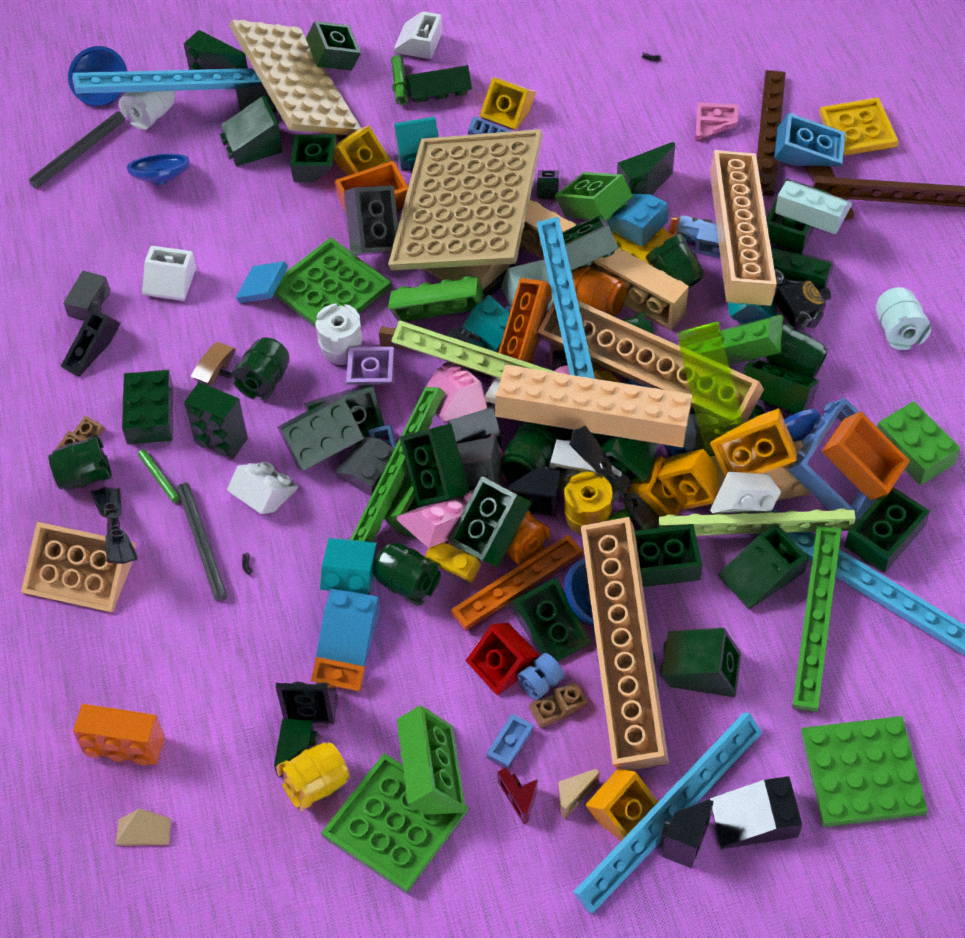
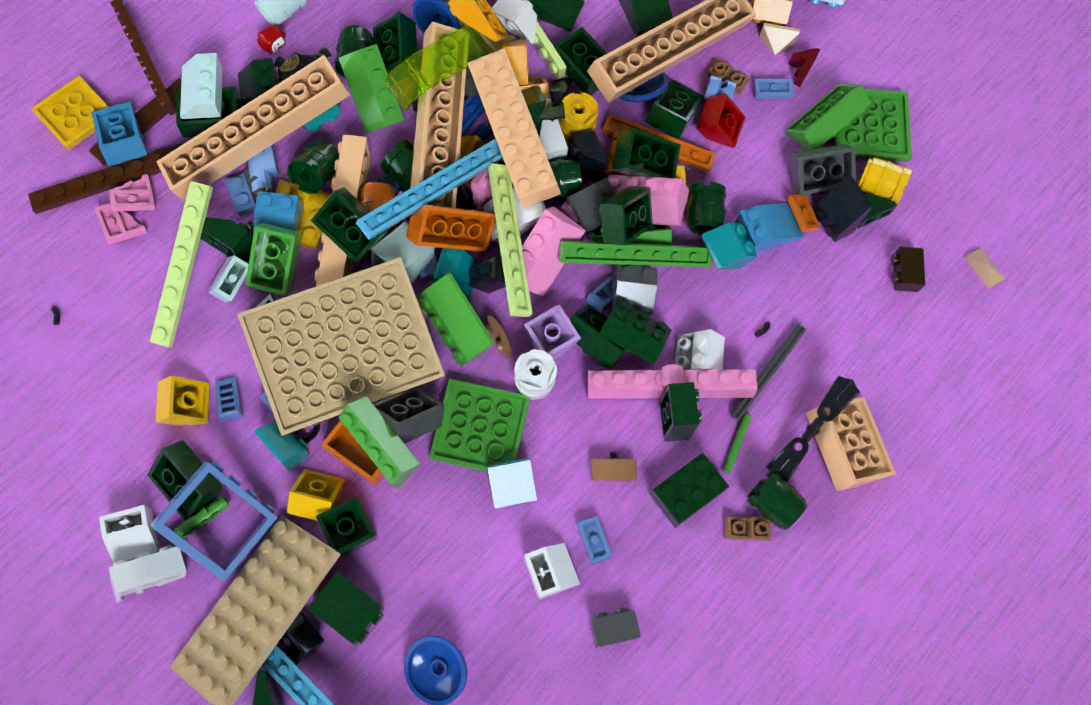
camera: 130 degrees left, 15 degrees up
(90, 341) = (657, 587): black slope -> none
(119, 734) = (950, 314): orange piece -> none
(167, 319) = (594, 540): none -> medium blue plate
(200, 738) = (908, 269): none -> dark brown brick
(250, 439) = (654, 382): none -> bright pink hinge
(261, 368) = (600, 420): dark green piece -> none
(333, 45) = (189, 603): dark green brick -> none
(347, 175) = (379, 441): none -> bright green slope
(368, 712) = (821, 168): none -> dark grey brick
(370, 58) = (231, 482): none -> medium blue window
(379, 32) = (146, 571): none -> white wedge
(596, 161) = (229, 279): none -> light aqua brick
(633, 131) = (181, 264): none -> yellowish green plate
(690, 210) = (240, 194): none -> medium blue plate
(734, 133) = (132, 196): none -> bright pink wing
(860, 299) = (271, 38): none -> red head

